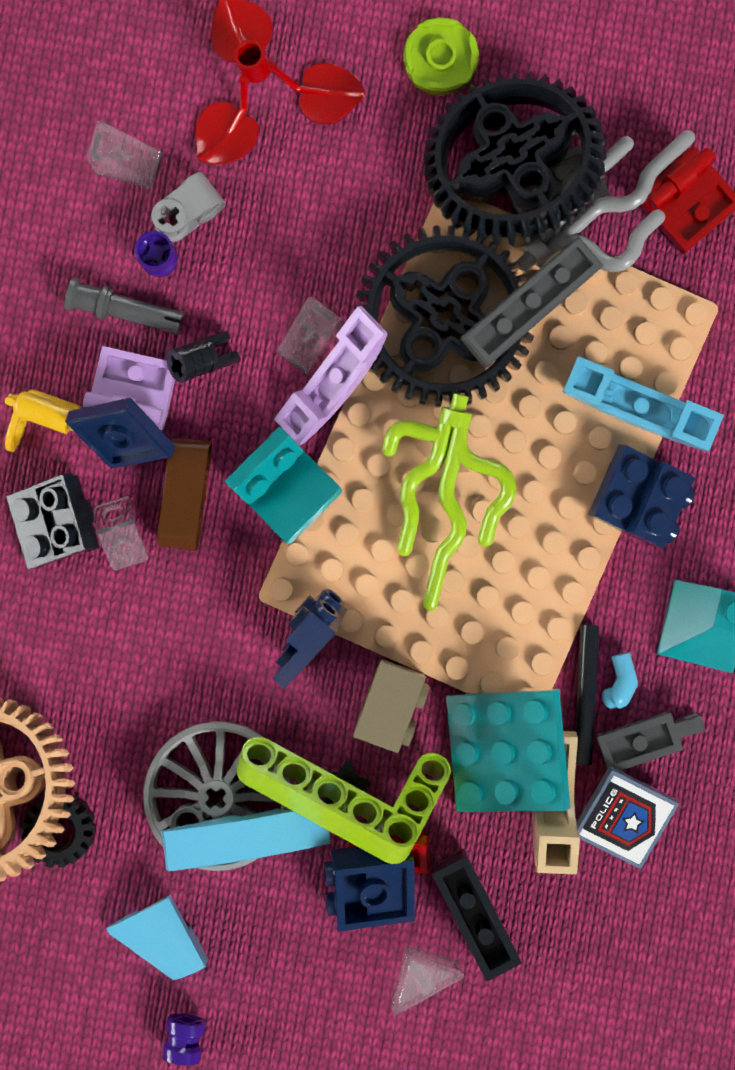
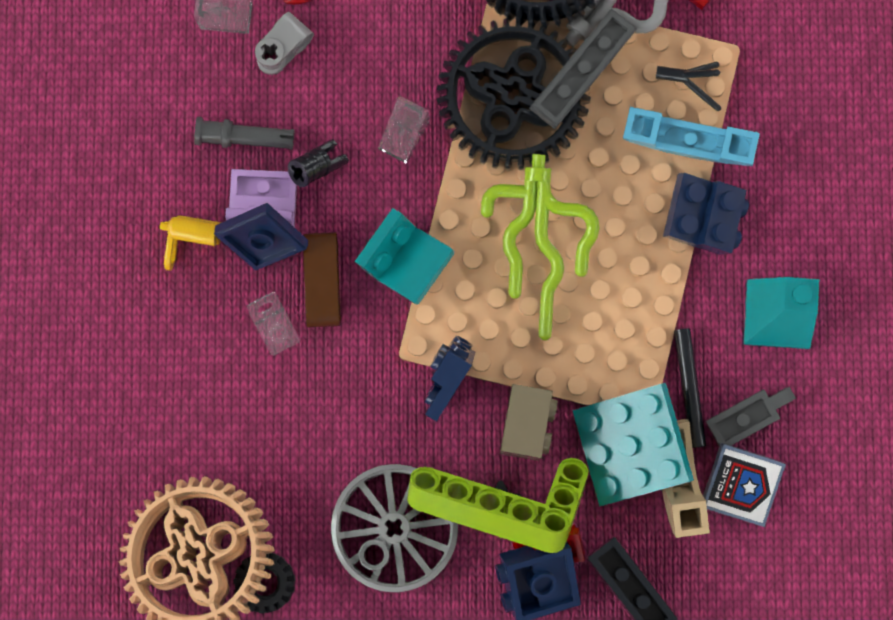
camera: 10 degrees left, 5 degrees down
(53, 520) = (214, 322): plate -> none
(154, 246) = (260, 80): dark purple wheel -> none
(240, 839) = (422, 556): medium azure slope -> none
(335, 379) = (432, 160): lavender slope -> none
(625, 684) = (721, 375): medium azure arm -> none
(647, 329) = (683, 75): none -> black plant

